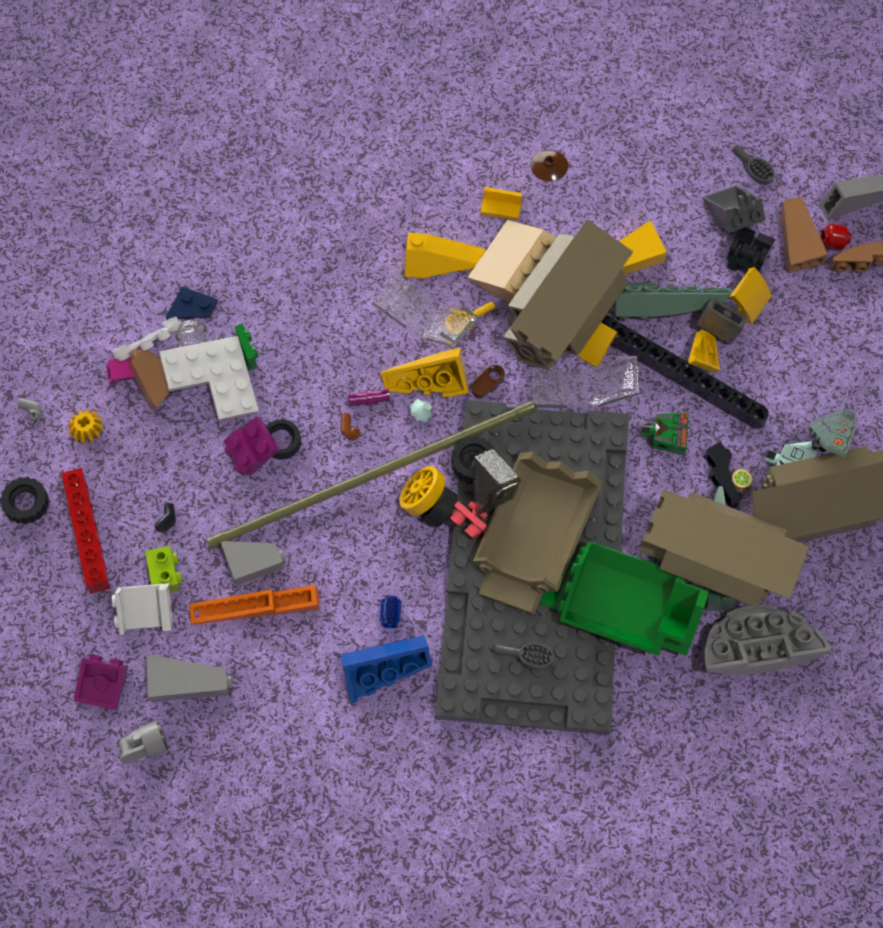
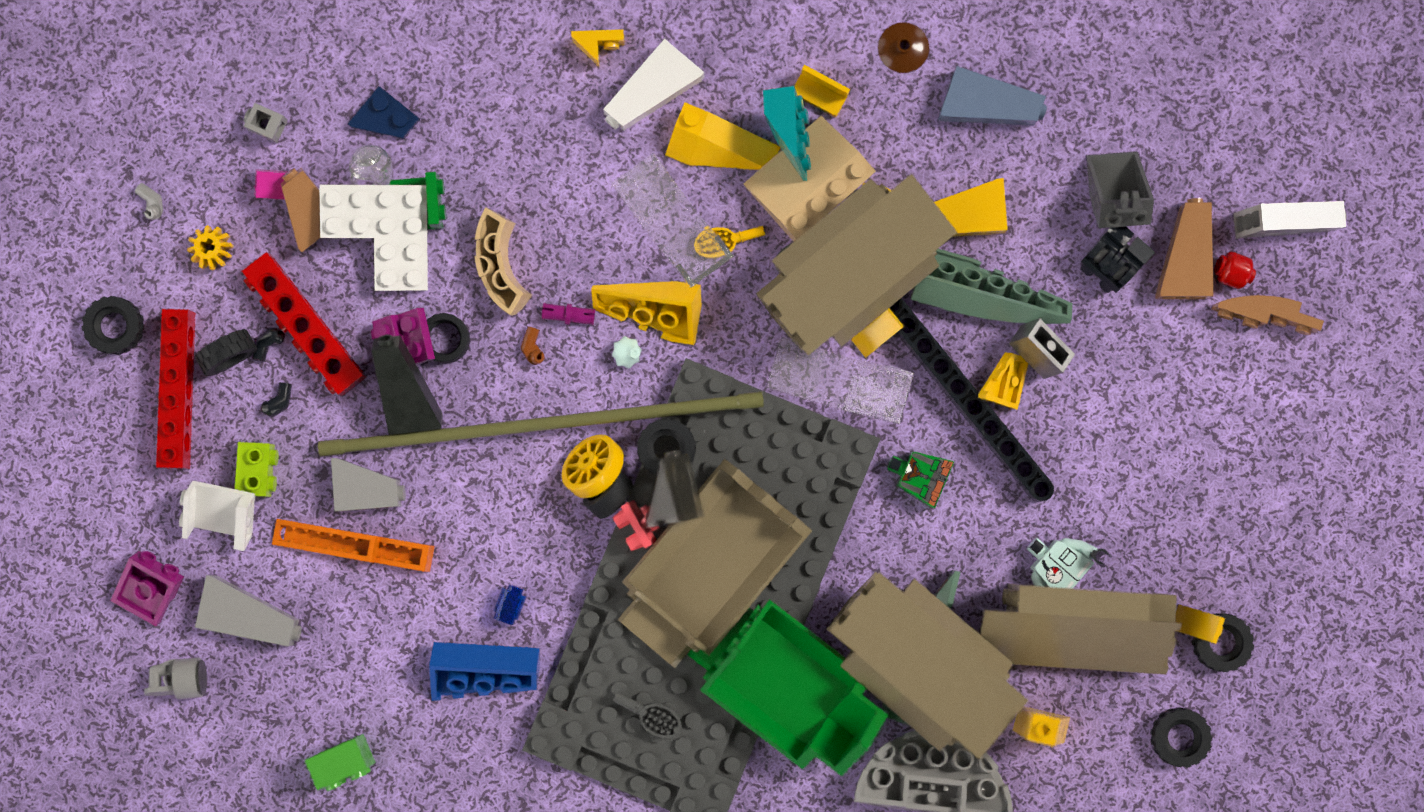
camera: 15 degrees right, 20 degrees up
(102, 325) = (274, 128): none -> light grey brick
(118, 490) = (225, 352): none -> black tyre
(134, 428) = (256, 278): none -> red brick
(144, 480) = (265, 340): none -> black arm
(171, 325) = (321, 149): white plant -> none
(264, 481) = (403, 391): none -> pearl dark grey slope
(294, 764) = (339, 762): none -> bright green brick
(297, 365) = (493, 262): none -> tan brick
(327, 216) = (591, 40): none -> yellow slope
(381, 232) = (653, 85): none -> white slope
(485, 384) = (718, 339): reddish brown piece -> none
(487, 227) = (787, 123): none -> teal slope
(622, 179) = (989, 100): none -> sand blue slope
(719, 459) = (972, 530): black slope -> none
(741, 479) = (989, 562): tile -> none
(751, 295) = (1093, 322): yellow slope -> none
(757, 167) = (1173, 136): dark grey piece -> none
(825, 571) = (1041, 726): none -> yellow slope
(835, 430) = (1119, 555): sand green wedge -> none

